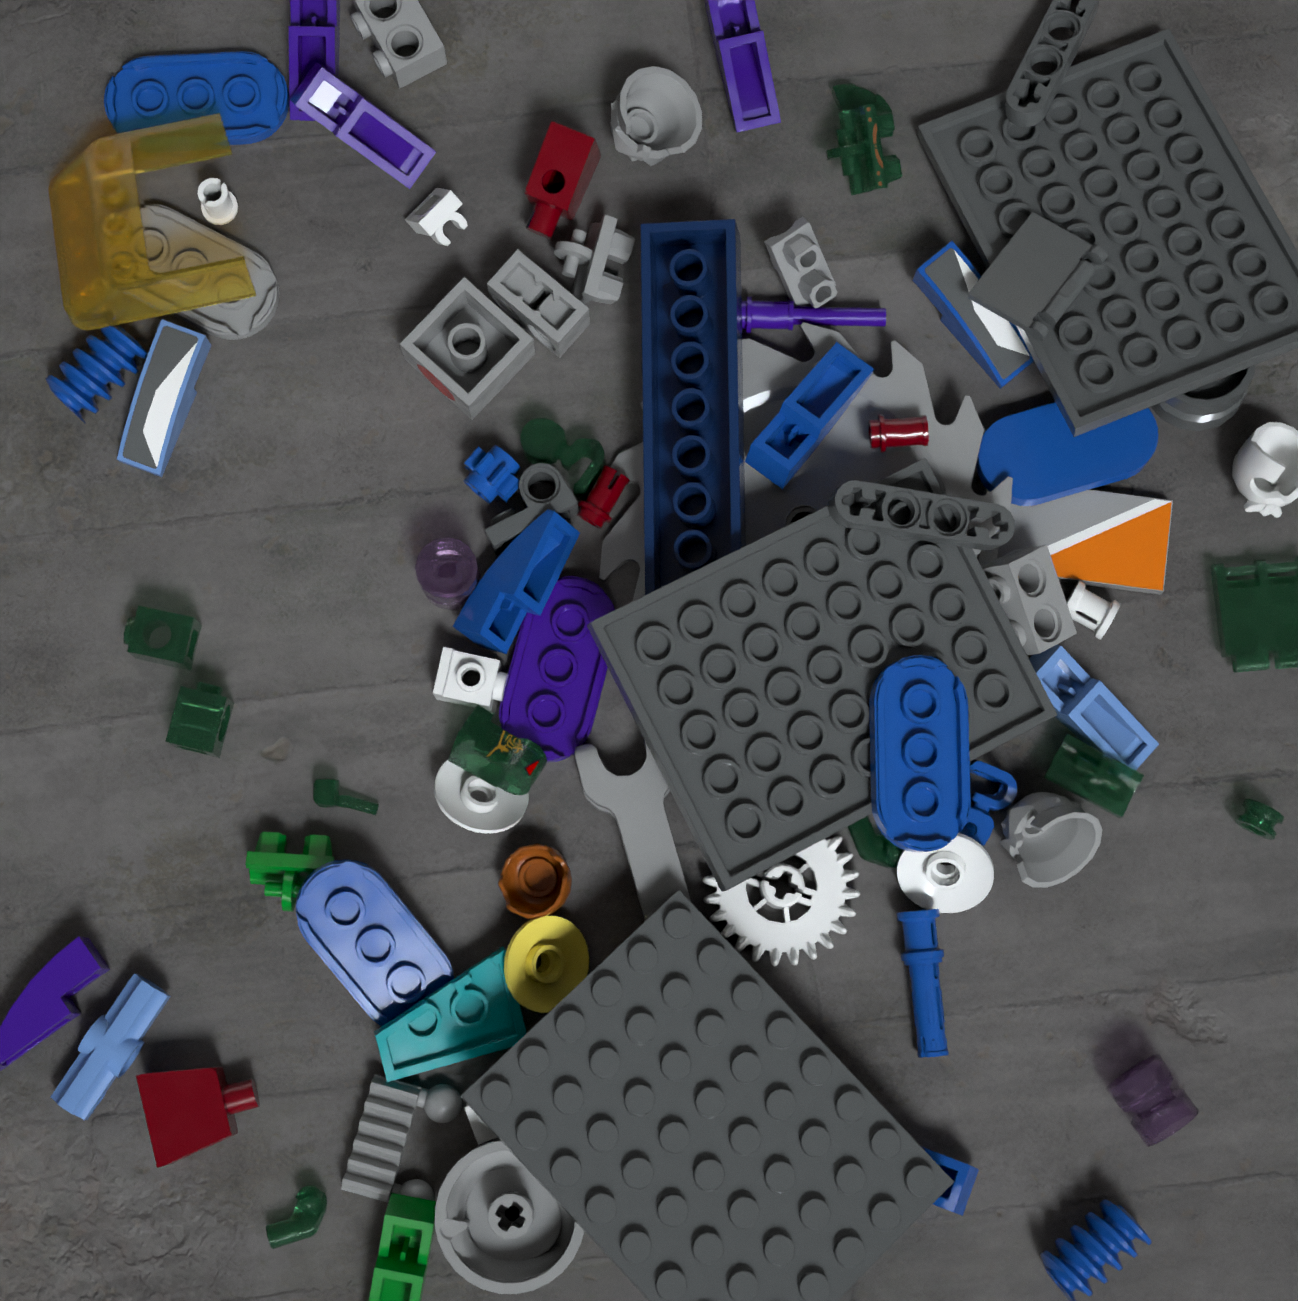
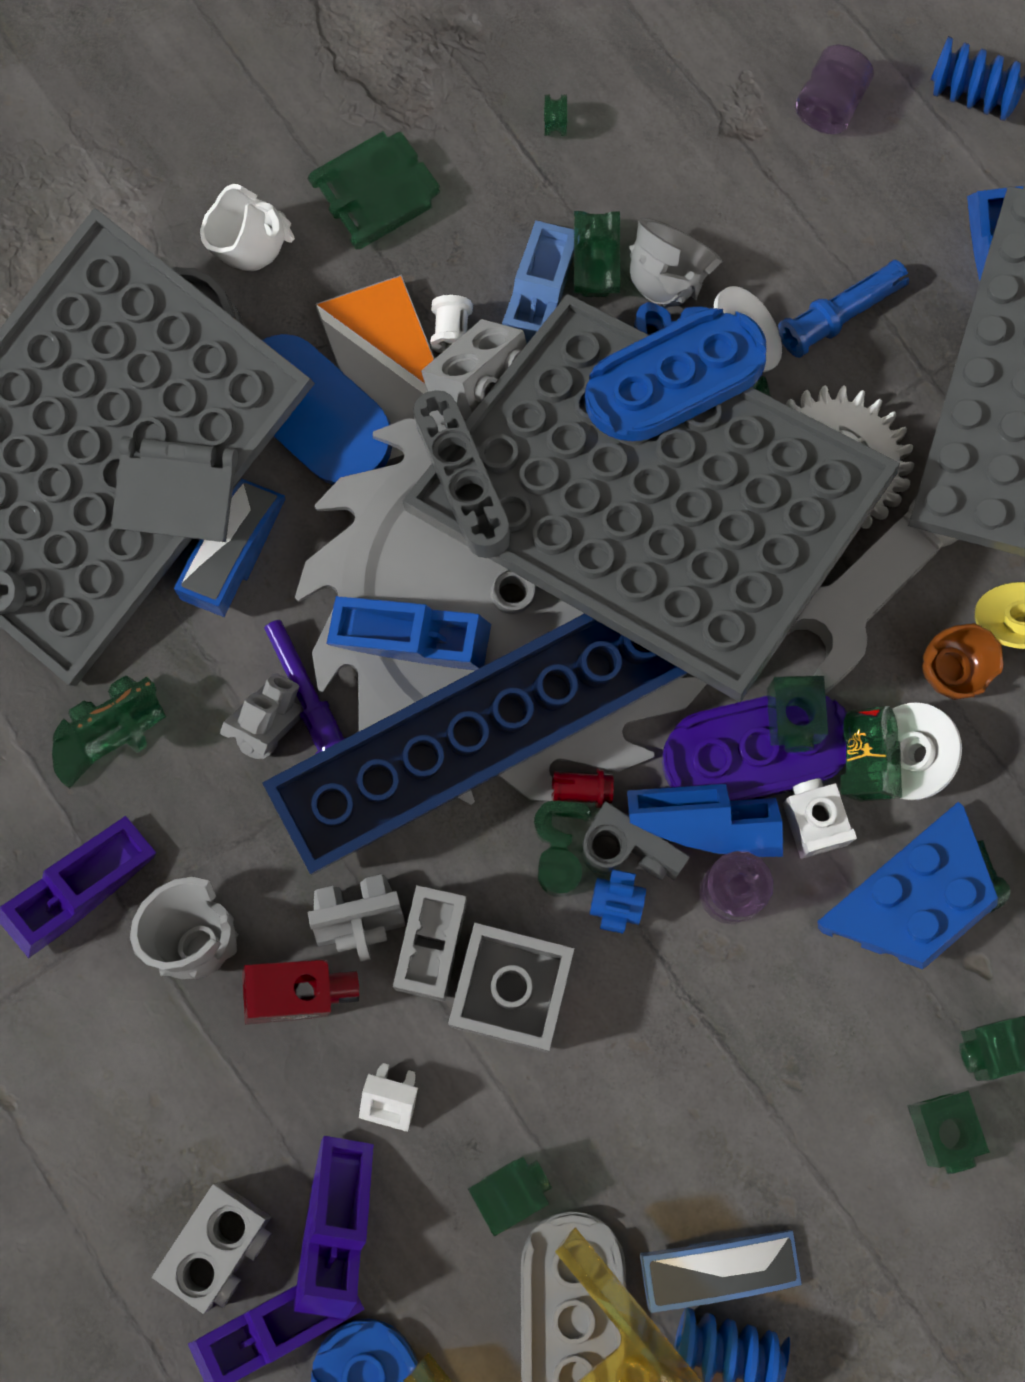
camera: 115 degrees left, 5 degrees down
(217, 203) = (494, 1318): white pin -> none
(311, 268) = (510, 1194): none -> clear green brick
(359, 729) = (920, 896): none -> blue wing
(581, 721) = (806, 693): none -> brick
(898, 432) = (385, 544): dark red pin -> none

